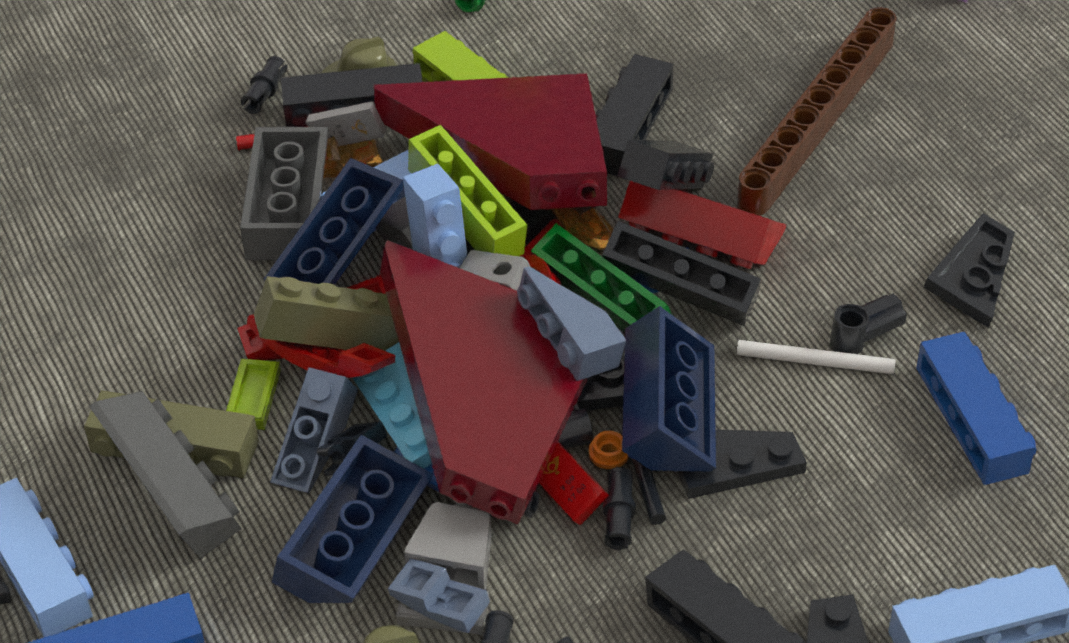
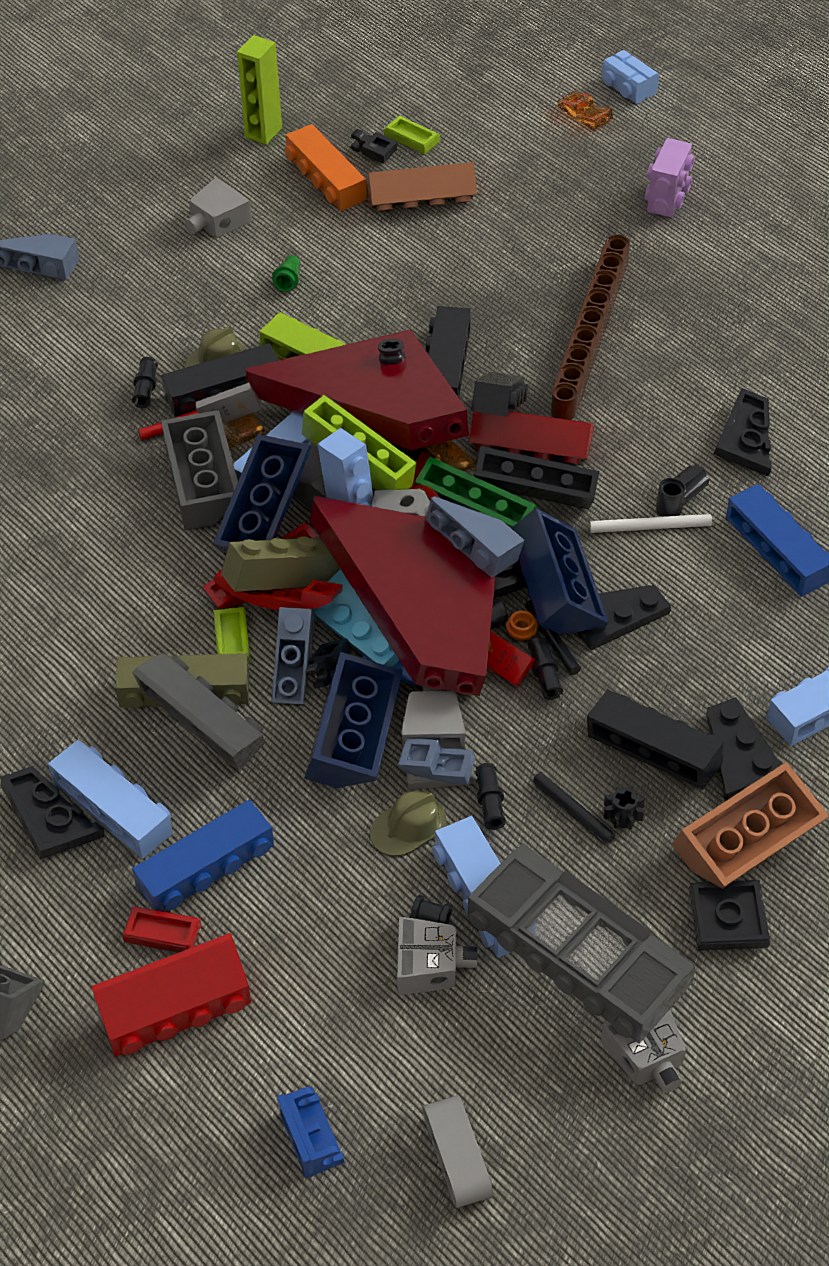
camera: 15 degrees left, 5 degrees up
(548, 92) = (391, 351): none -> black bush

